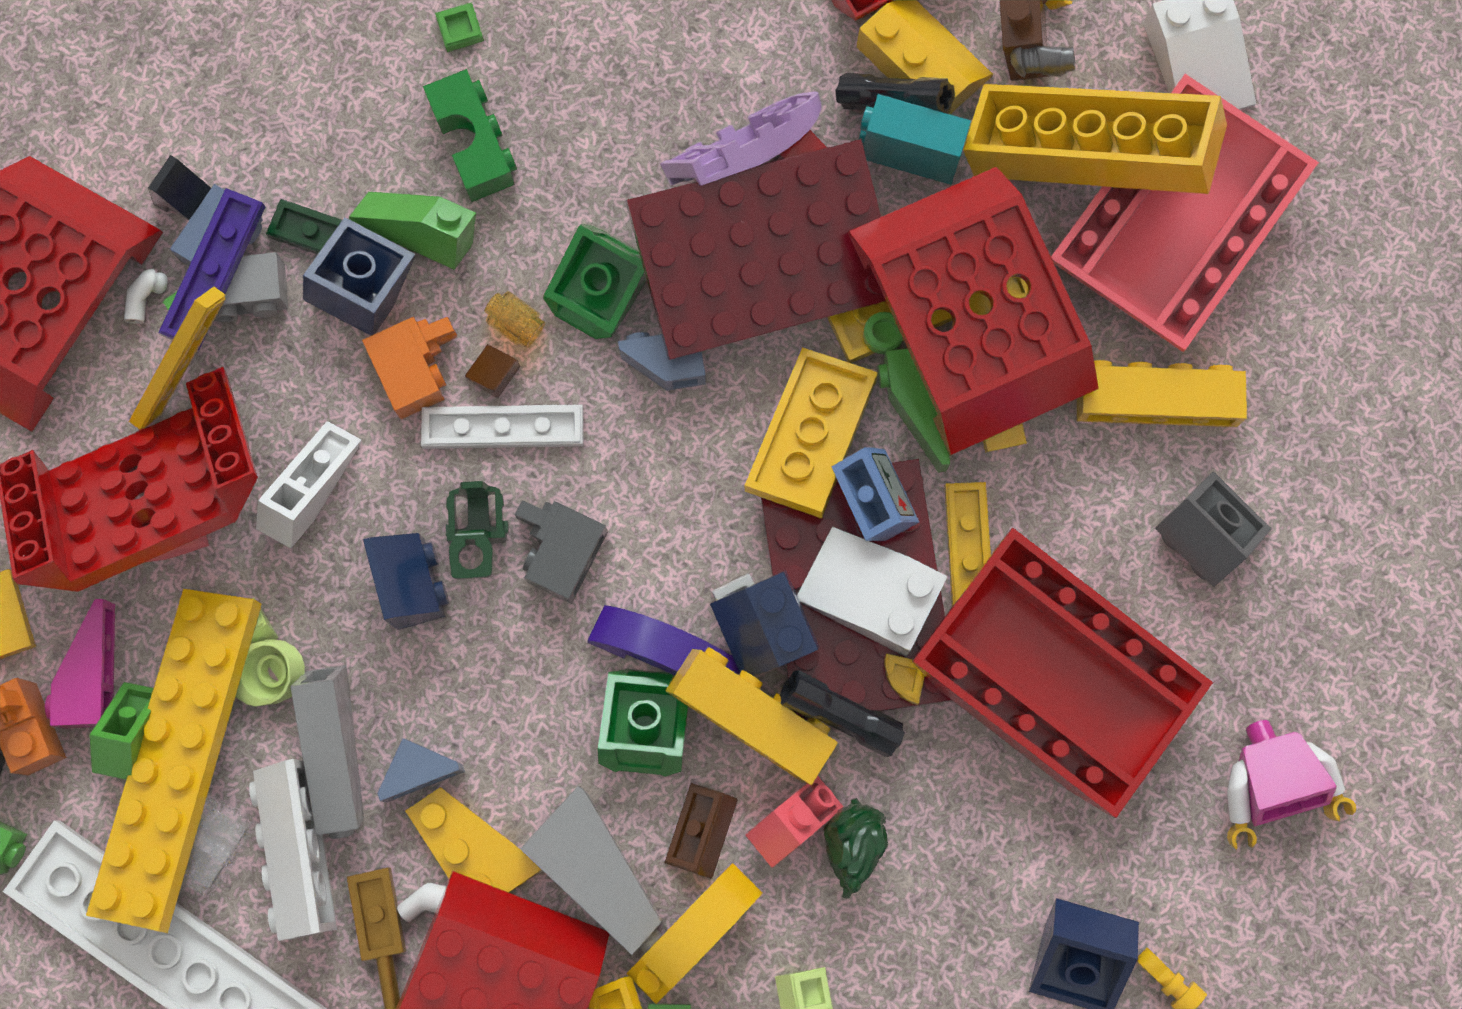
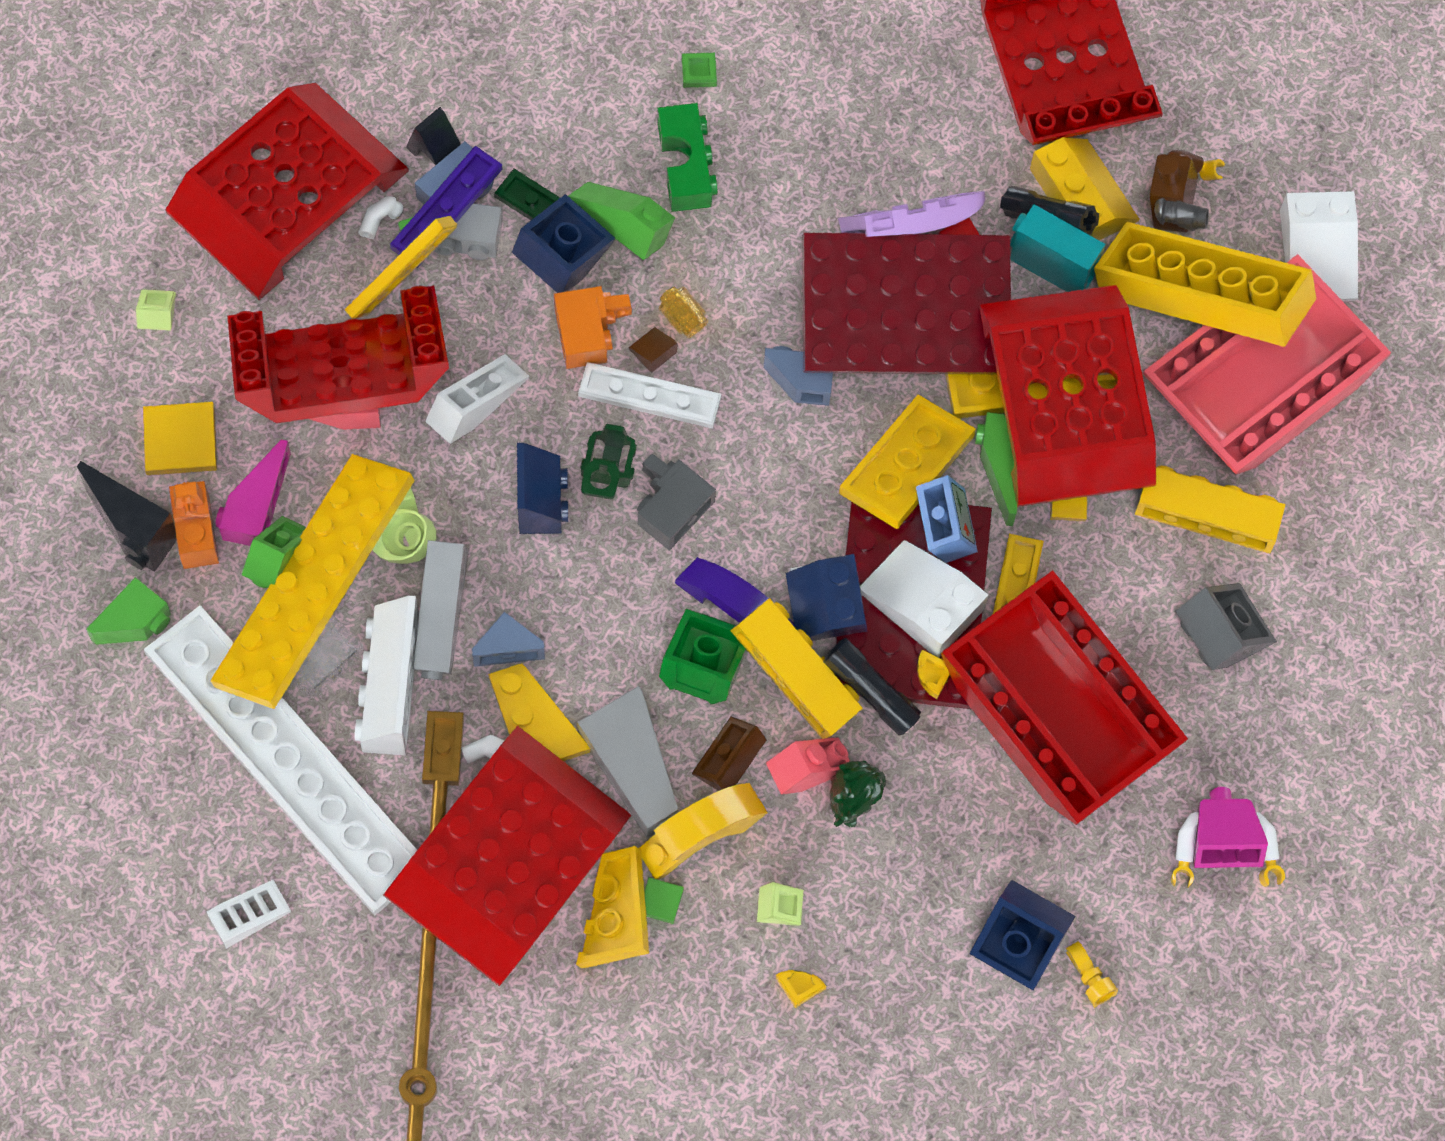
camera: 10 degrees right, 10 degrees down
(595, 282) = (758, 299): green slope -> none
(882, 333) = (987, 398): bright green tile -> none

